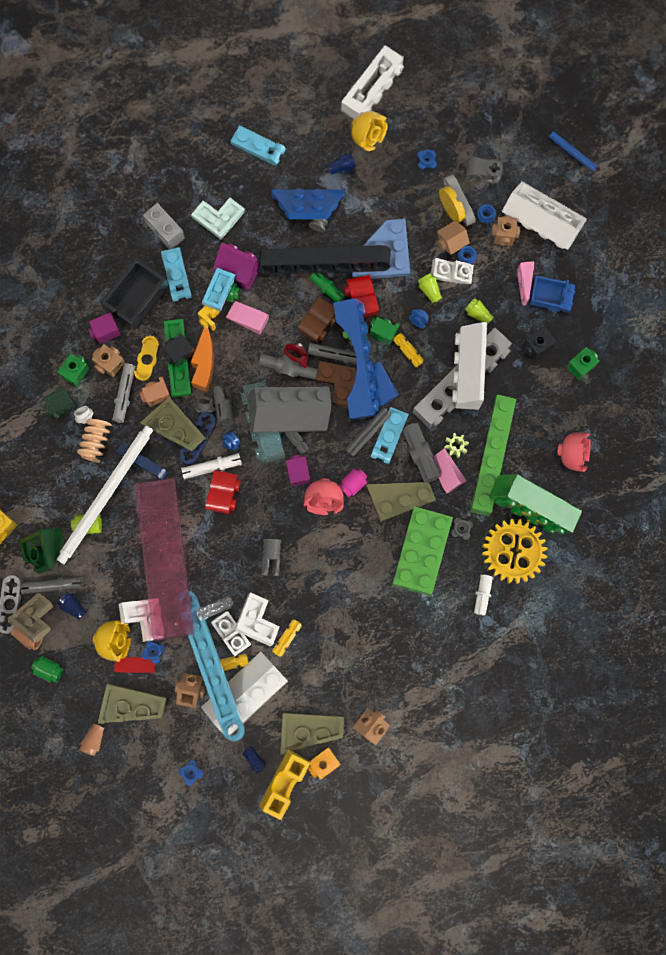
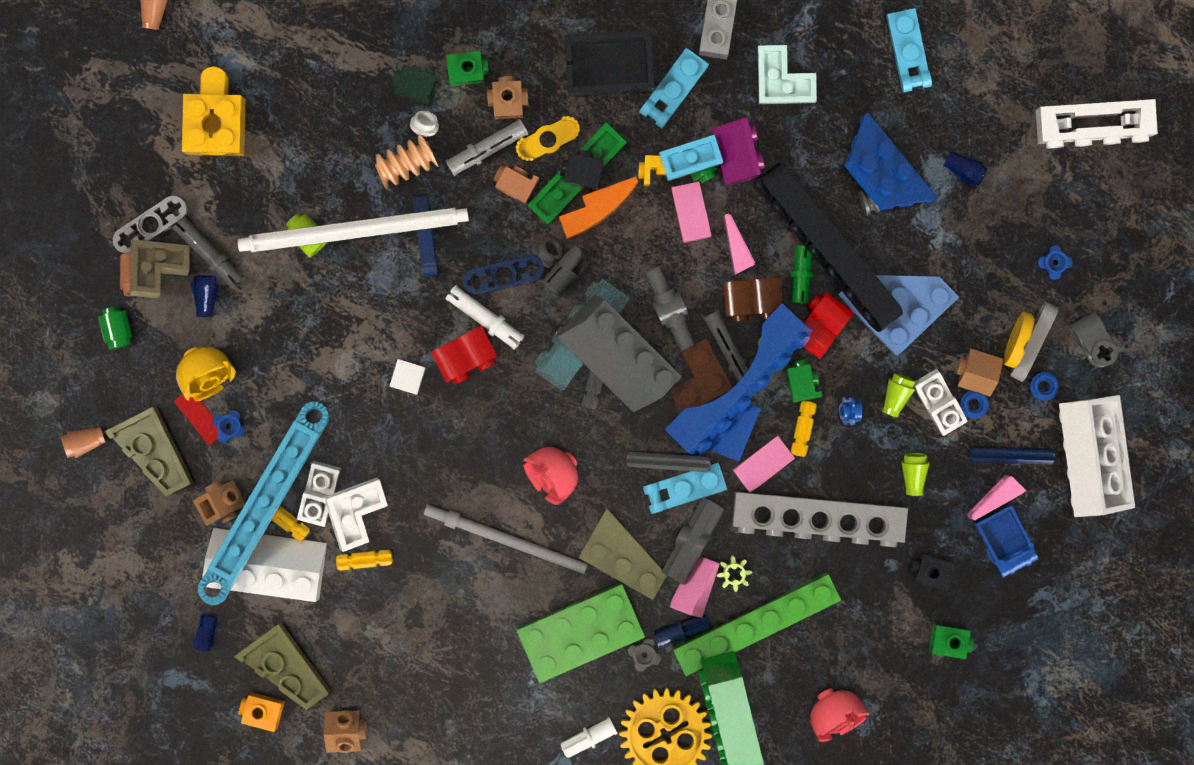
camera: 50 degrees right, 10 degrees up
(42, 548) = (238, 211): dark green slope -> none
(104, 328) = (541, 61): magenta brick -> none
(137, 612) = (263, 387): white plate -> none
(164, 560) = (337, 354): clear pink plate -> none
(174, 425) = (496, 237): olive wing -> none
(184, 771) = (128, 579): blue plate -> none
(208, 533) = (407, 376): none -> white tile
(214, 608) = (330, 455): clear axle -> none
(230, 441) = (530, 315): blue plate -> none
(271, 551) = (443, 466): dark grey hinge -> none
(277, 795) = (183, 691): yellow arch -> none
(288, 308) = (739, 251): none -> bright pink slope
(298, 348) = (701, 304): dark red piece -> none
(298, 470) = (559, 418): magenta brick -> none
(305, 571) = (453, 519): none -> light grey bar
(353, 482) = (596, 491): dark pink brick -> none
(368, 129) = (1033, 164): yellow cylinder -> none
(410, 385) = (763, 464): none -> bright pink slope
(465, 498) = (682, 631): none -> dark blue axle
(470, 366) = (833, 520): white slope -> none
(505, 230) = (1028, 426): medium nougat brick -> none
(509, 257) = (1012, 455): none -> dark blue axle

